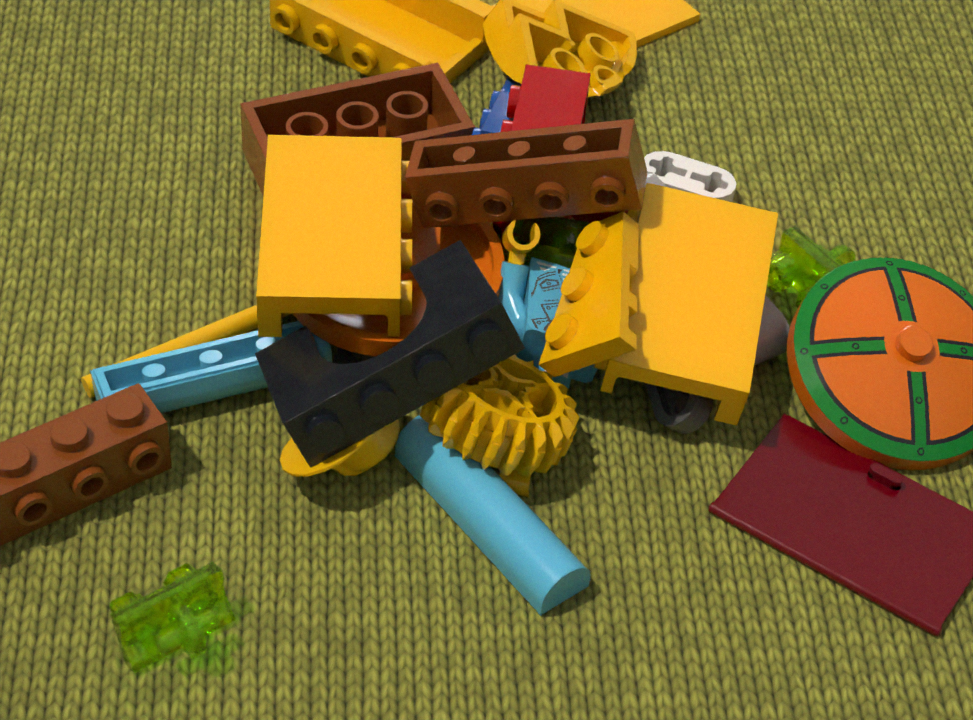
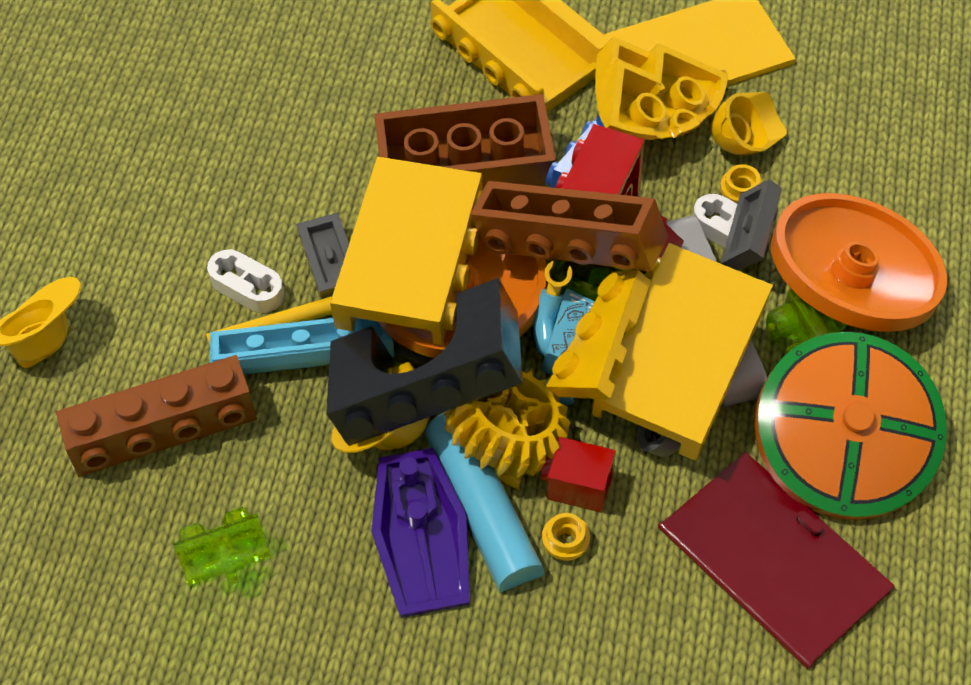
camera: 20 degrees right, 10 degrees up
(117, 313) = (242, 286): none -> white beam
(215, 269) = (325, 250): none -> dark grey plate
(425, 562) = (420, 534): none -> dark purple piece
(602, 463) = (579, 474): none -> red brick
(609, 523) = (566, 524): none -> yellow plate
(671, 79) = (747, 124): none -> yellow cap
(686, 138) = (737, 177): none -> yellow plate
(720, 163) = (752, 225): none -> dark grey plate
(848, 195) = (858, 262): none -> orange dish

